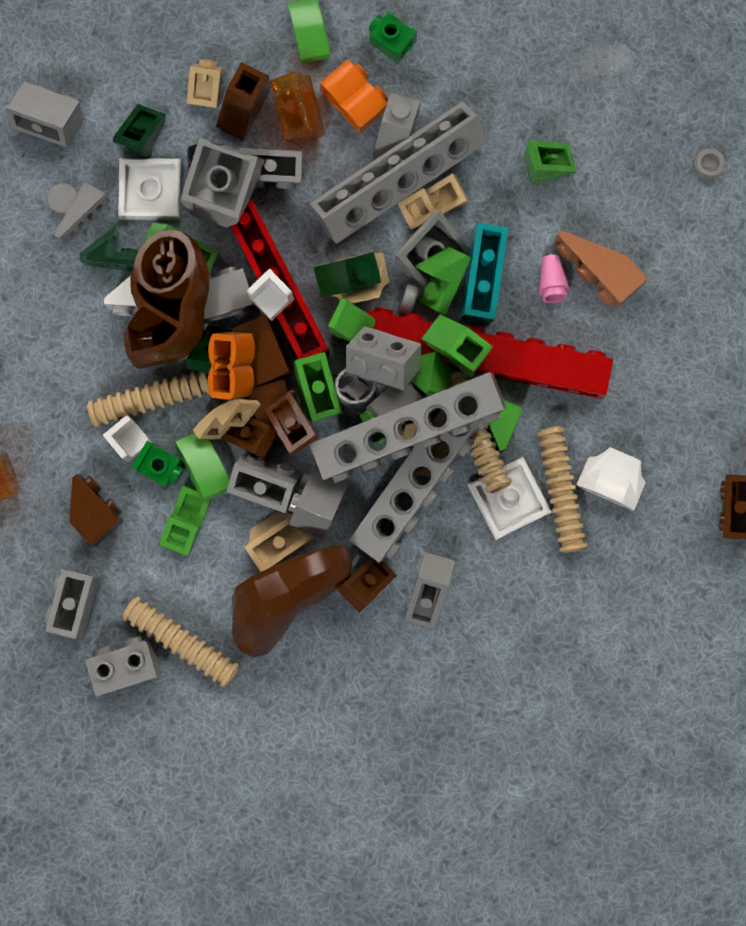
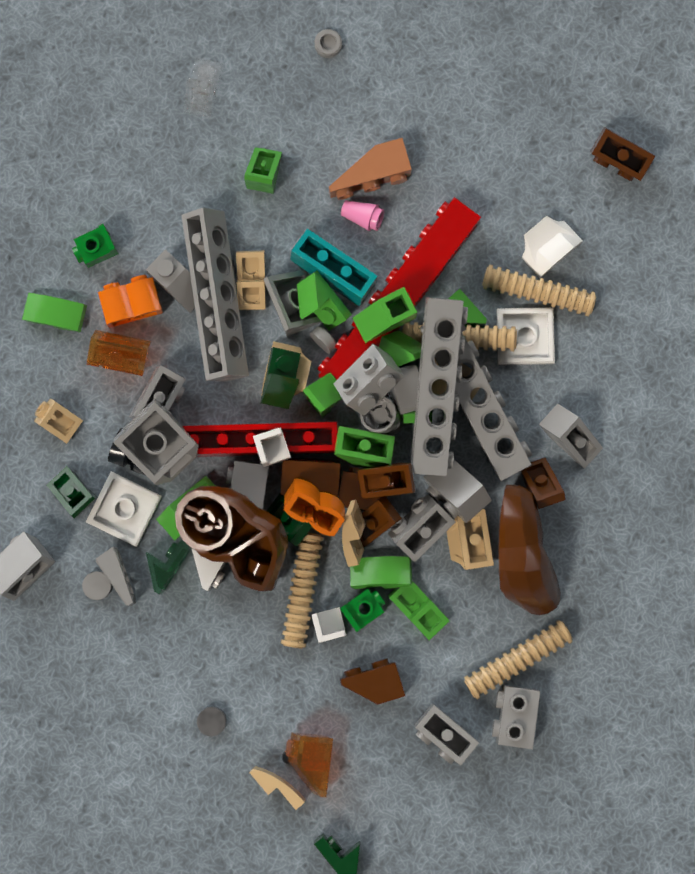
camera: 65 degrees left, 0 degrees up
(243, 100) = (90, 395): reddish brown slope -> none

